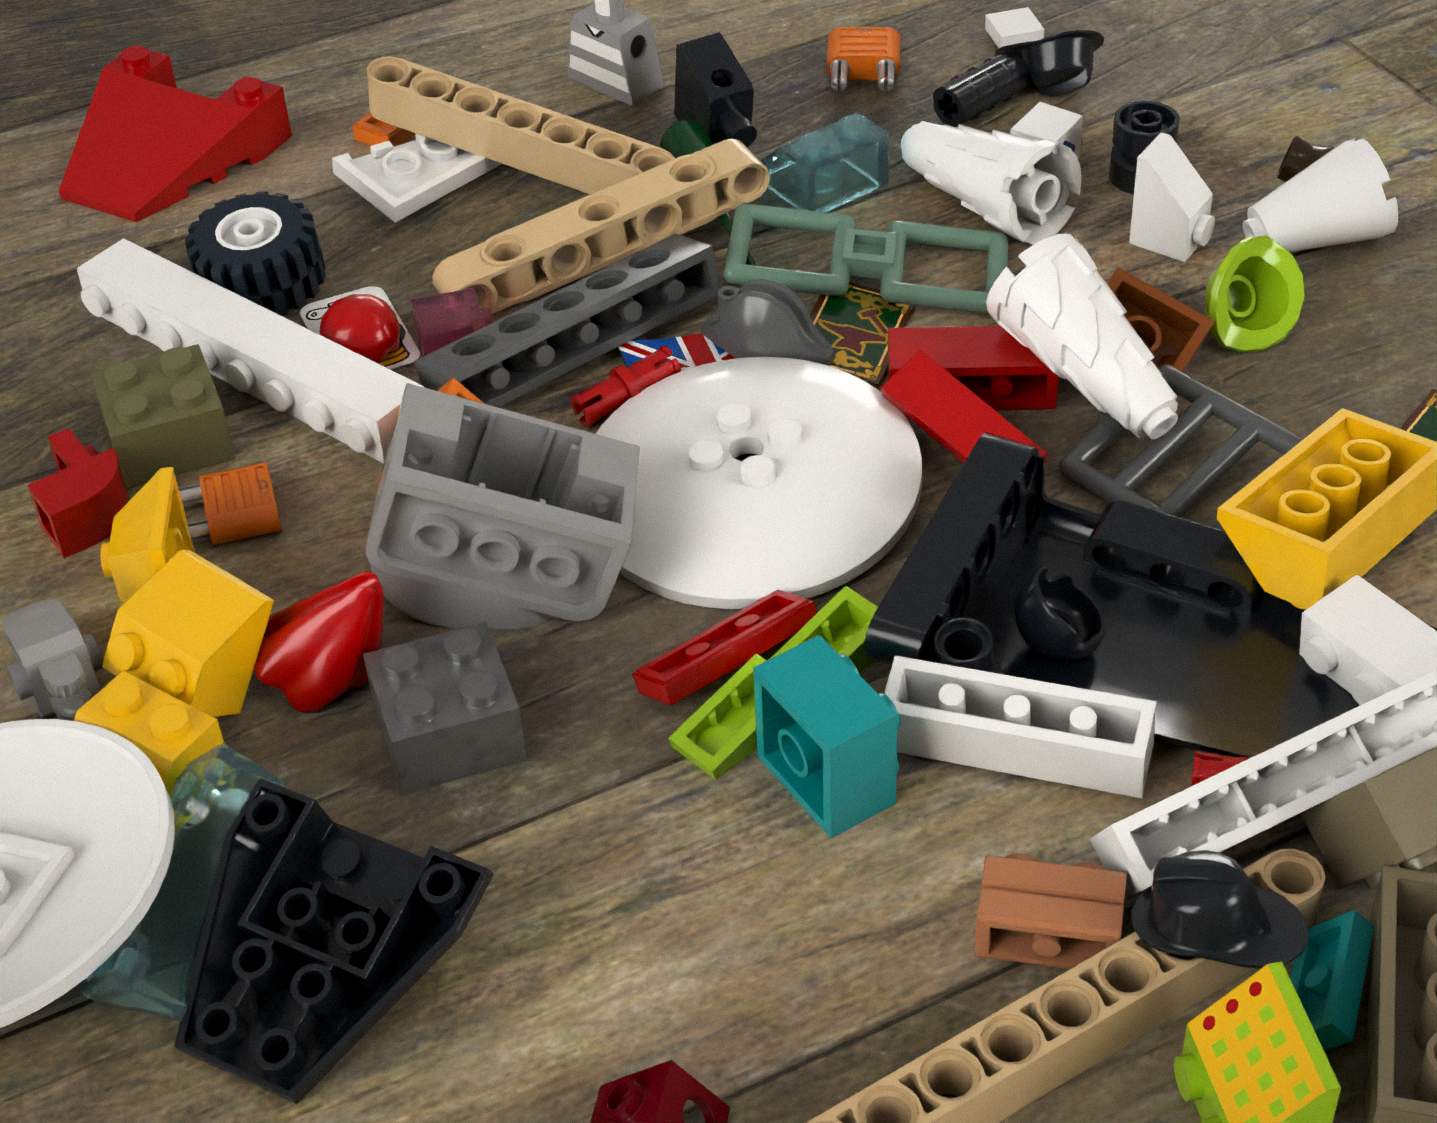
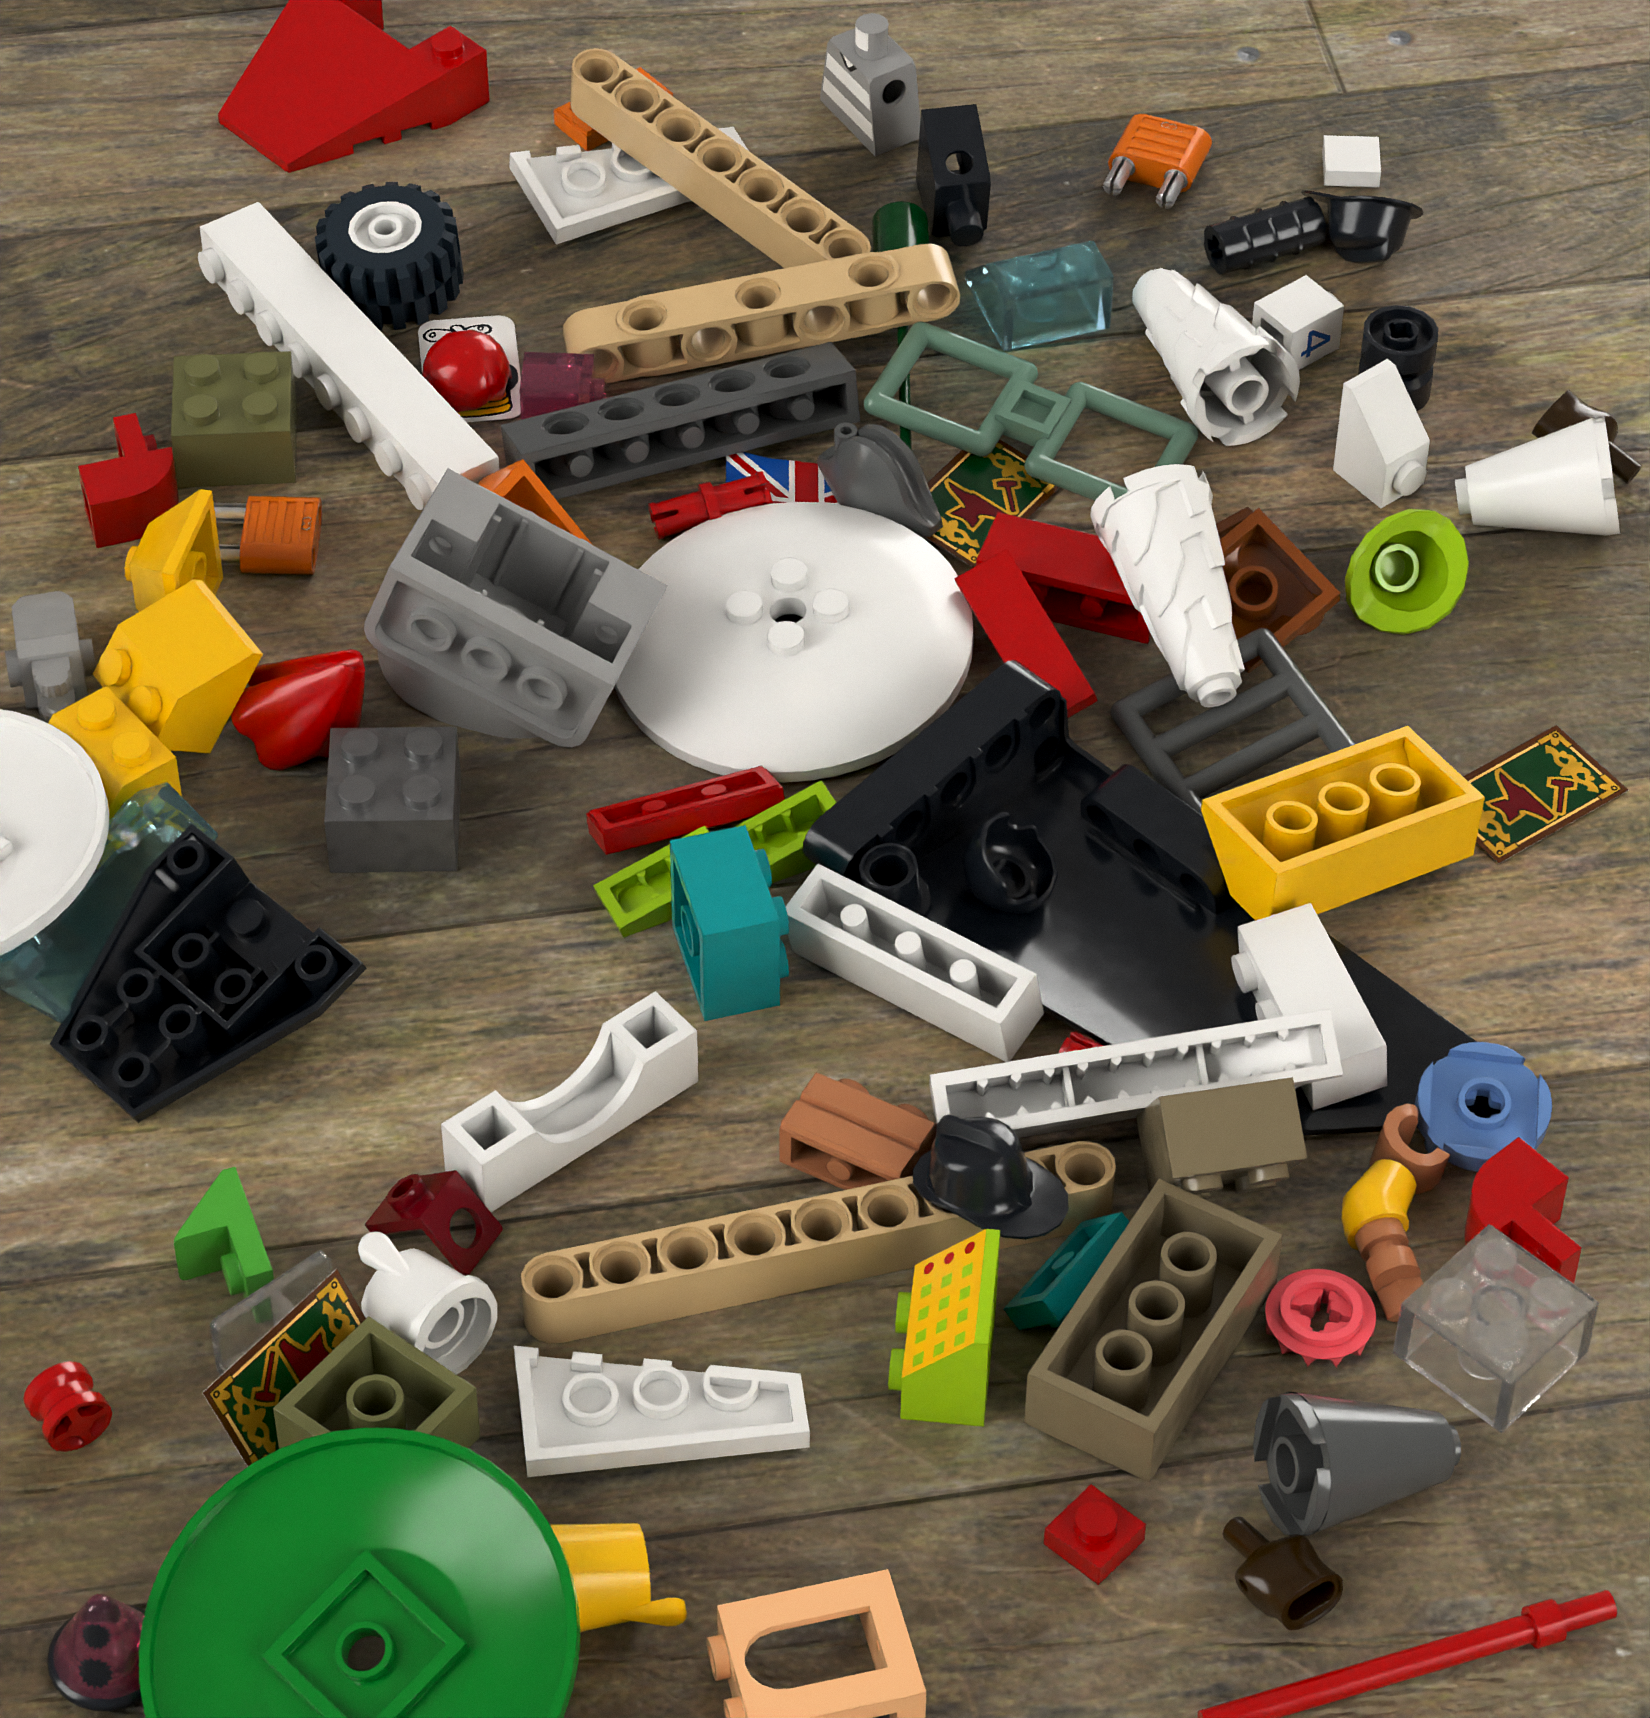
camera: 15 degrees right, 5 degrees up
(715, 1012) = (632, 1069): none -> white arch

